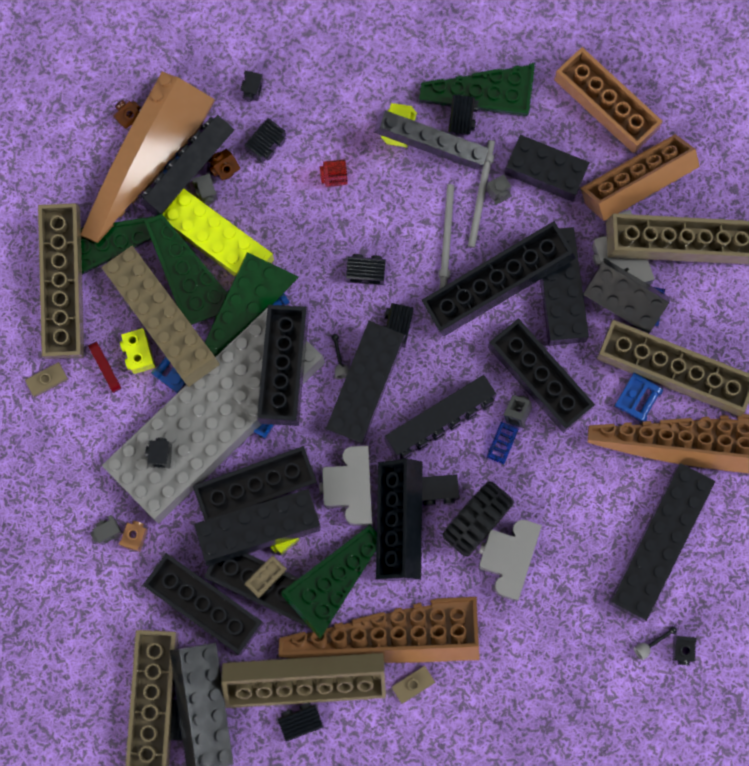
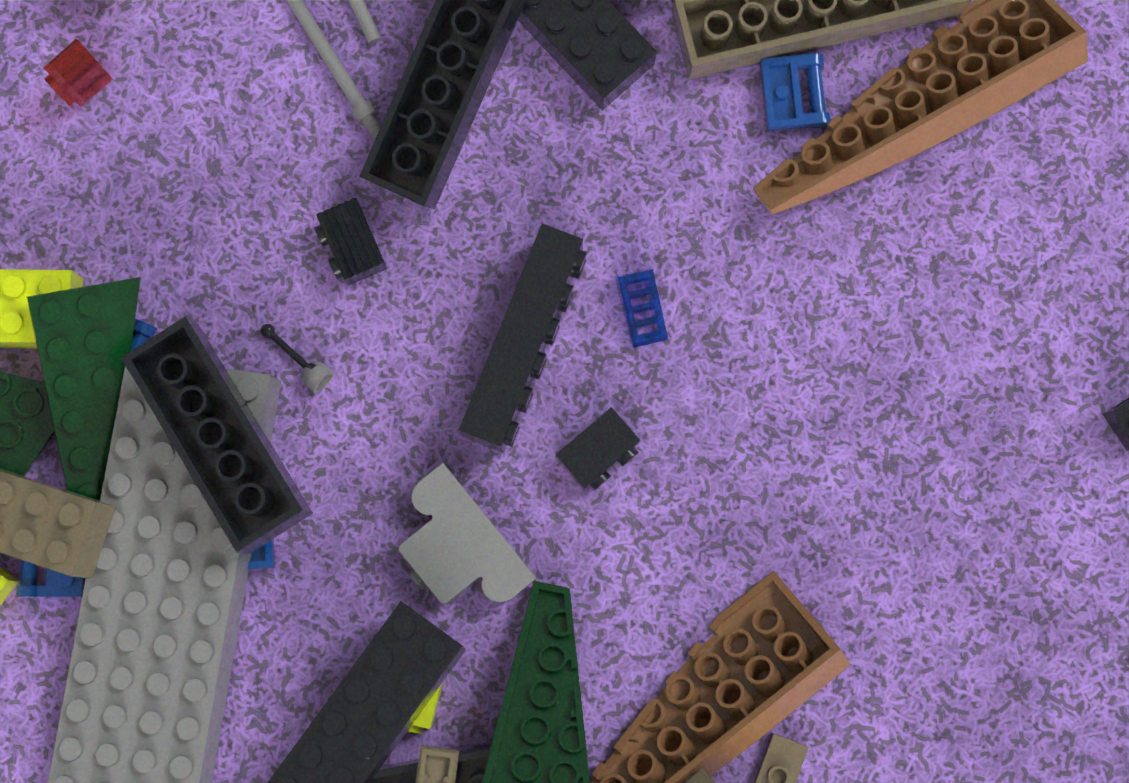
camera: 40 degrees left, 5 degrees up
(159, 453) = (121, 719): black brick -> none
(256, 484) = (311, 653): black brick -> none
(365, 269) = (238, 191): black brick -> none
(365, 382) = (366, 366): black brick -> none
(399, 520) = (575, 543): black brick -> none
(477, 518) = (697, 453): black tyre -> none
(510, 557) = (782, 474): light grey brick -> none
(517, 404) = (621, 232): dark grey brick -> none
(541, 375) = (626, 162): black brick -> none
(643, 650) = (1077, 467): hinge -> none
(661, 542) = (988, 286): black brick -> none

